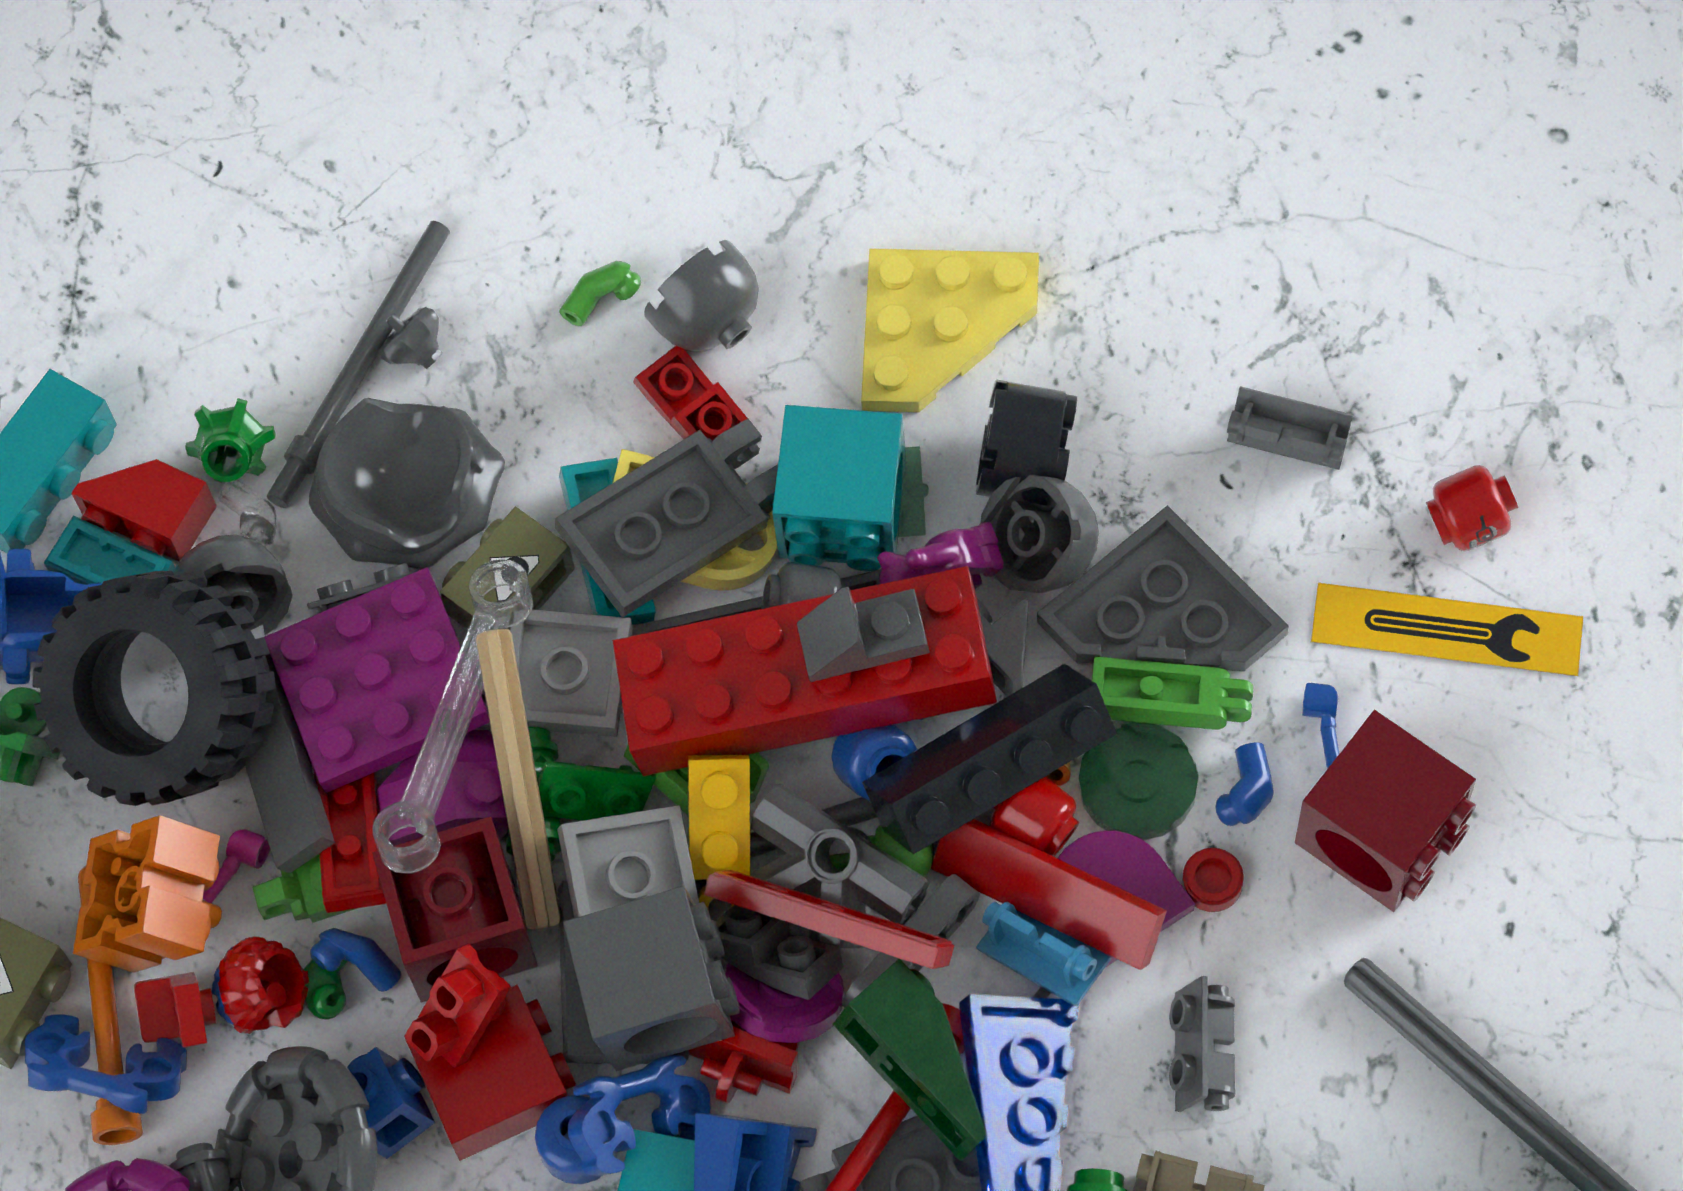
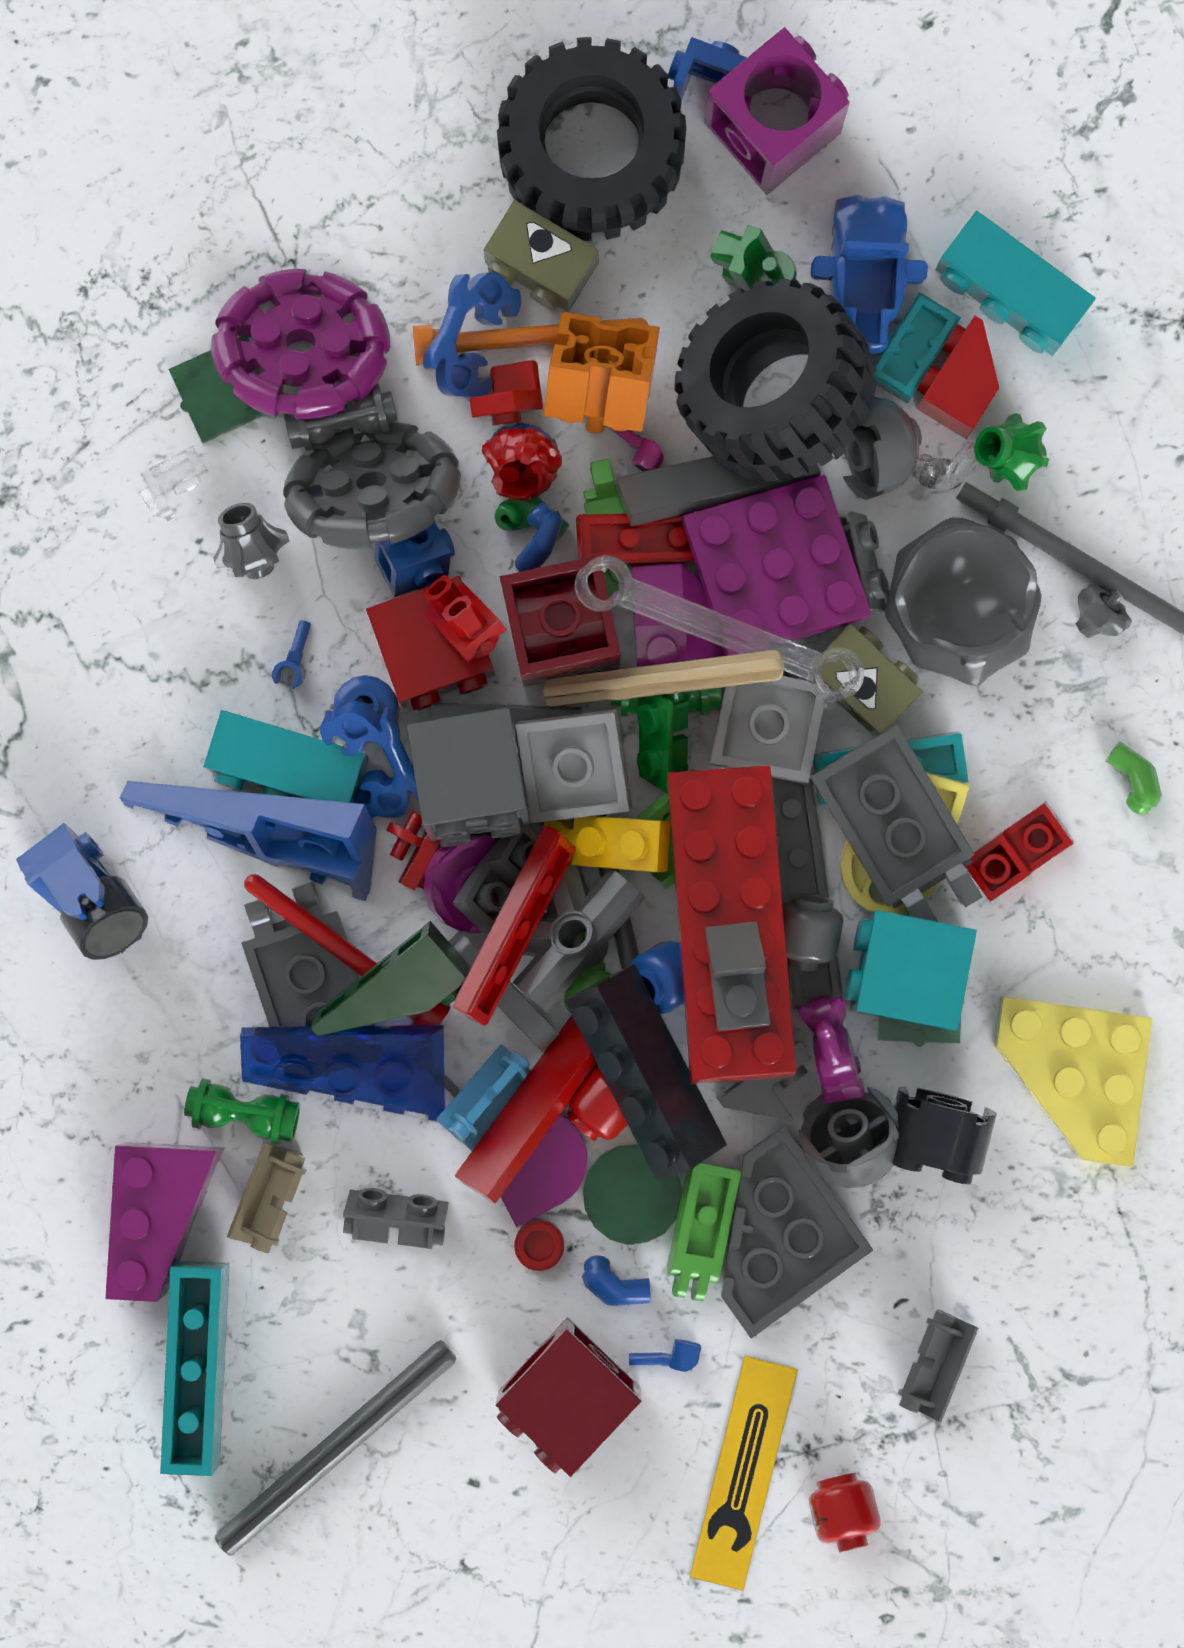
camera: 90 degrees right, 20 degrees up
(707, 301) = (1103, 872): dark grey cylinder -> none

